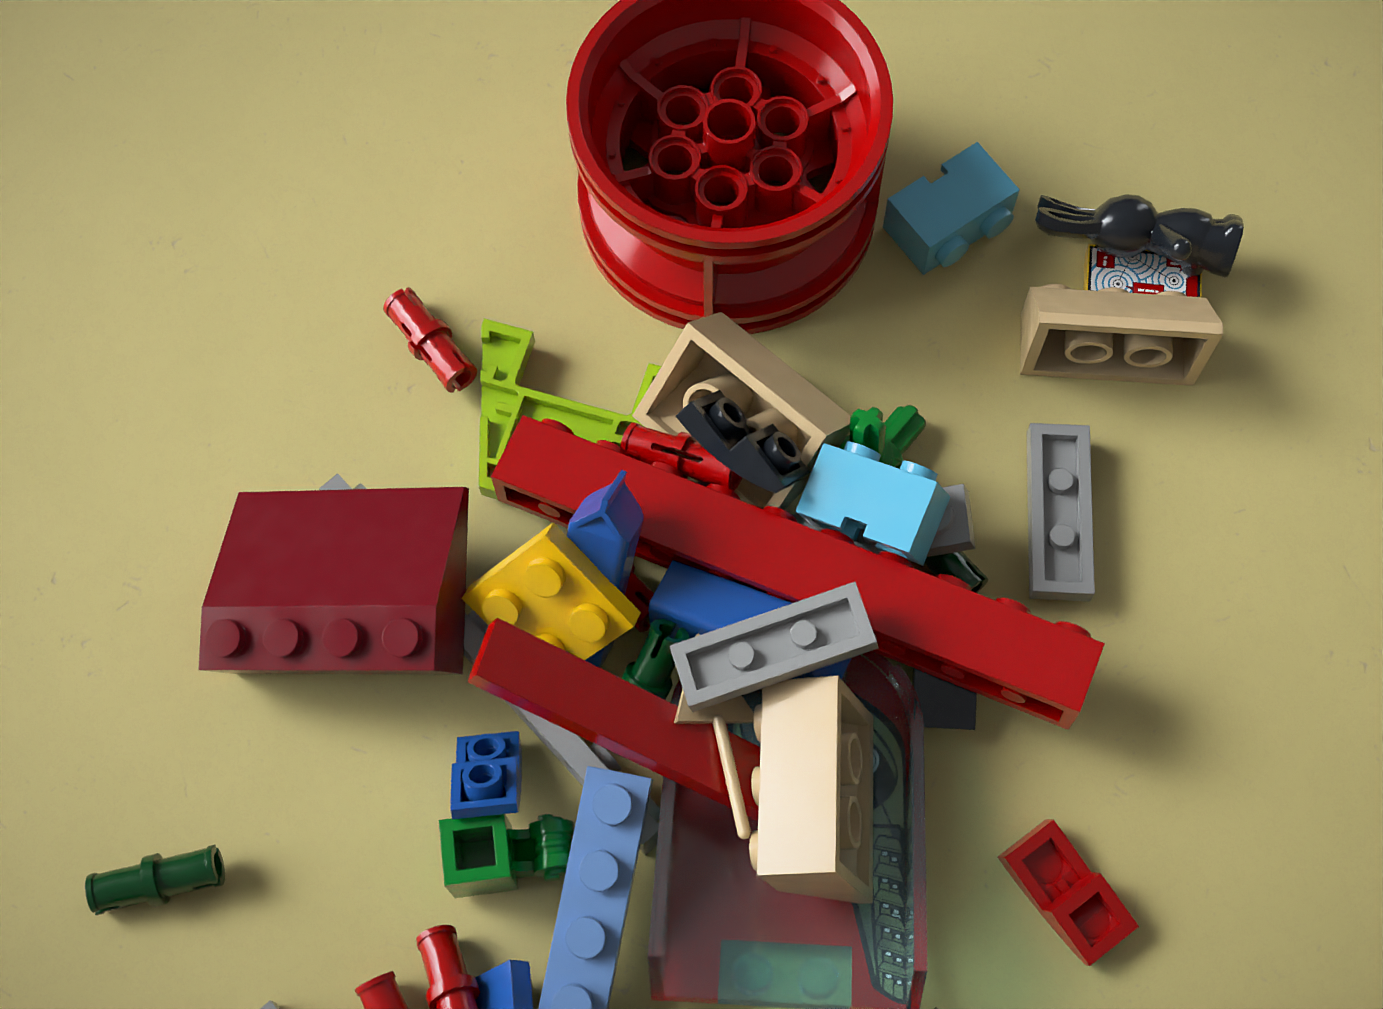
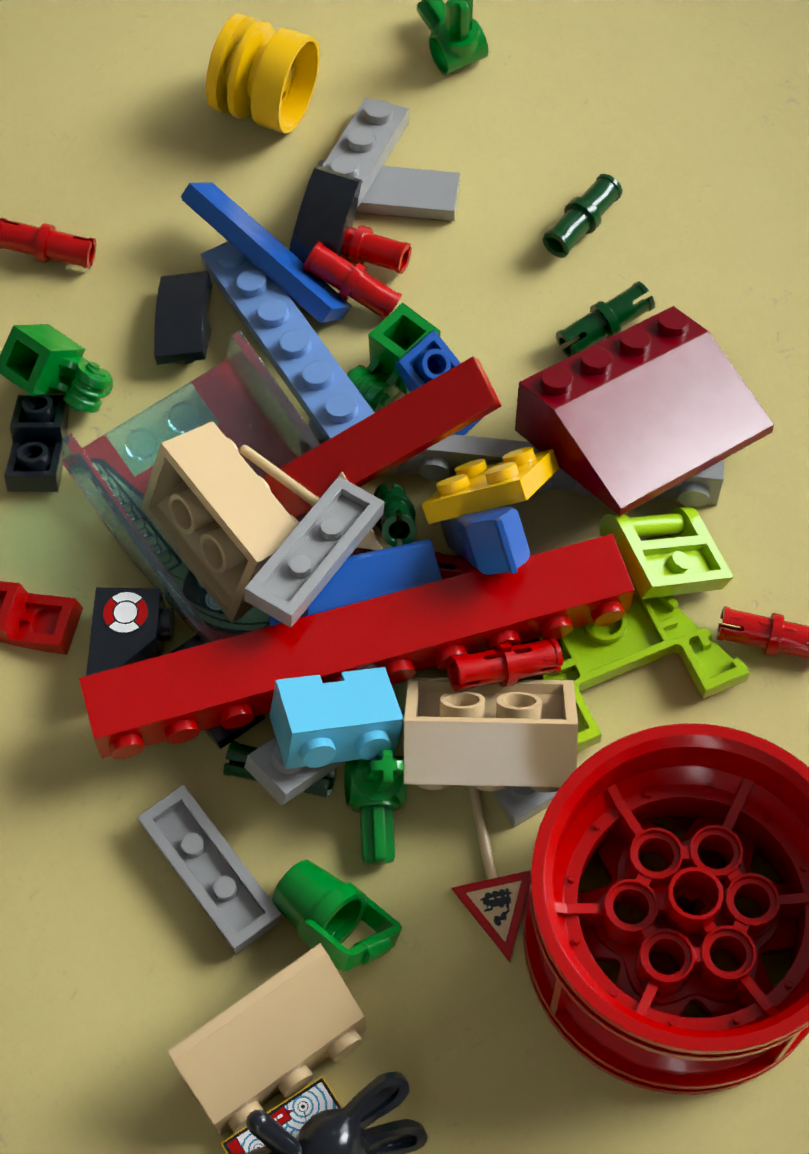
camera: 140 degrees right, 5 degrees down
(257, 740) = (605, 319): none -> dark green pin
(451, 440) = (671, 564): none -> lime plate
(761, 457) = (456, 674): black slope -> none
(842, 322) = (498, 900): none -> piece
(944, 217) = (491, 1037): medium azure brick -> none
(985, 773) = (128, 627): none -> black slope
(991, 397) = (329, 911): none -> green piece

